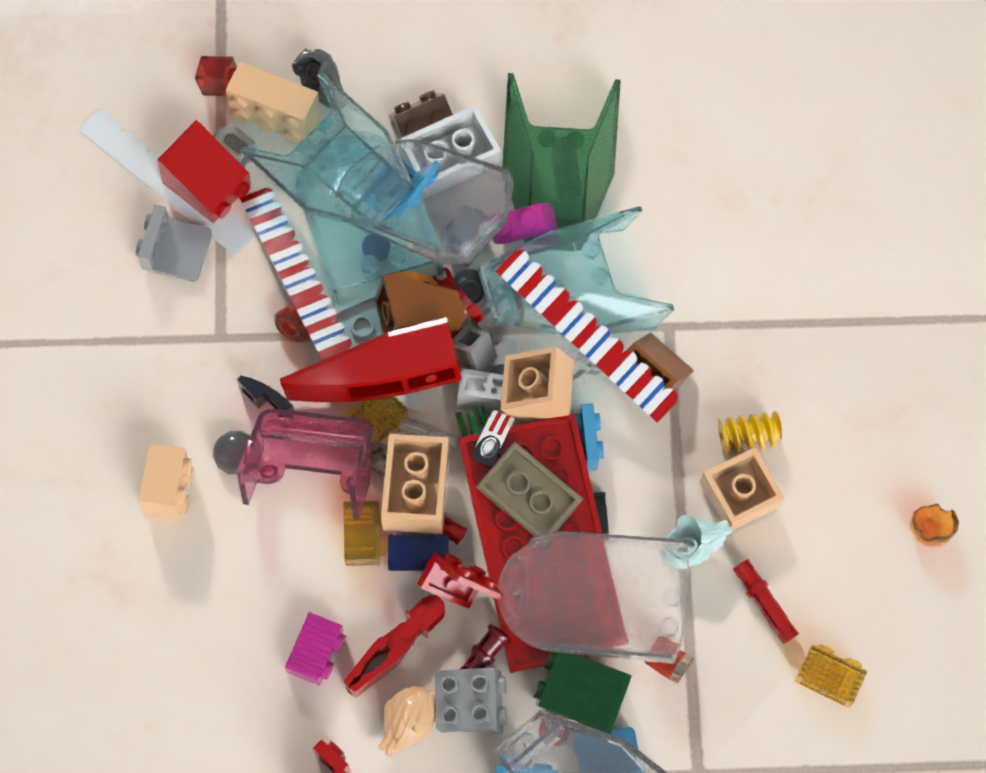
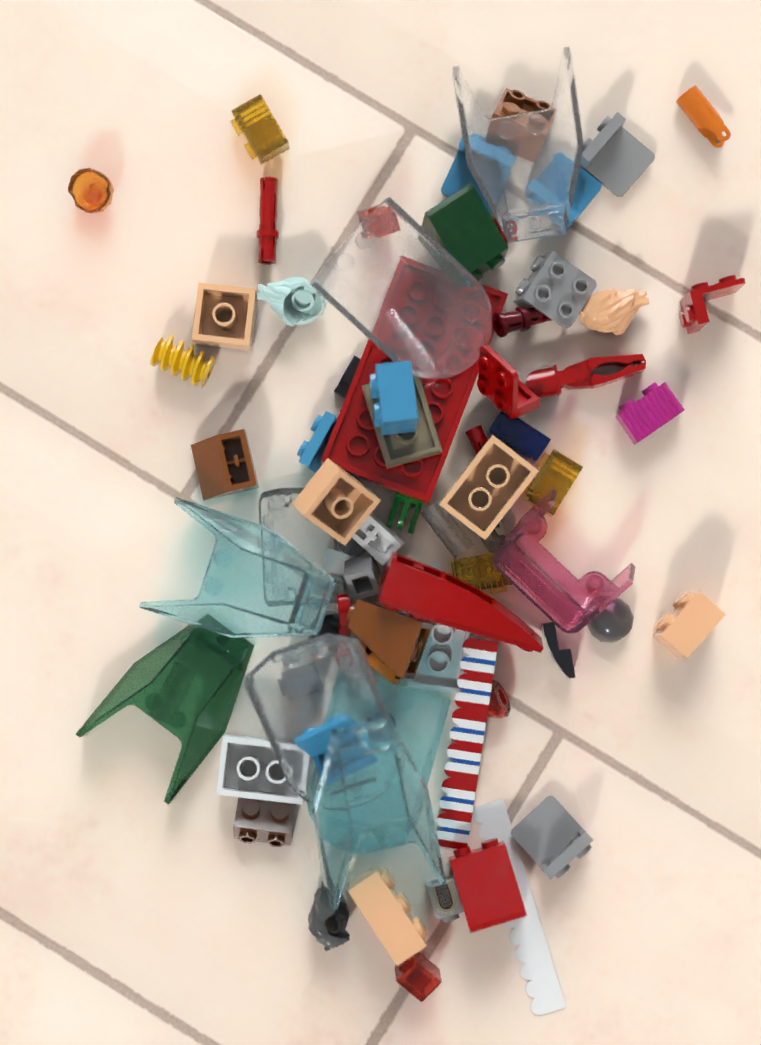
camera: 140 degrees left, 15 degrees up
(492, 438) = (401, 483): sticker -> none
(526, 223) = (238, 655): dark pink brick -> none
(547, 493) = (395, 398): none -> dark azure brick
(584, 335) = (269, 518): sticker -> none

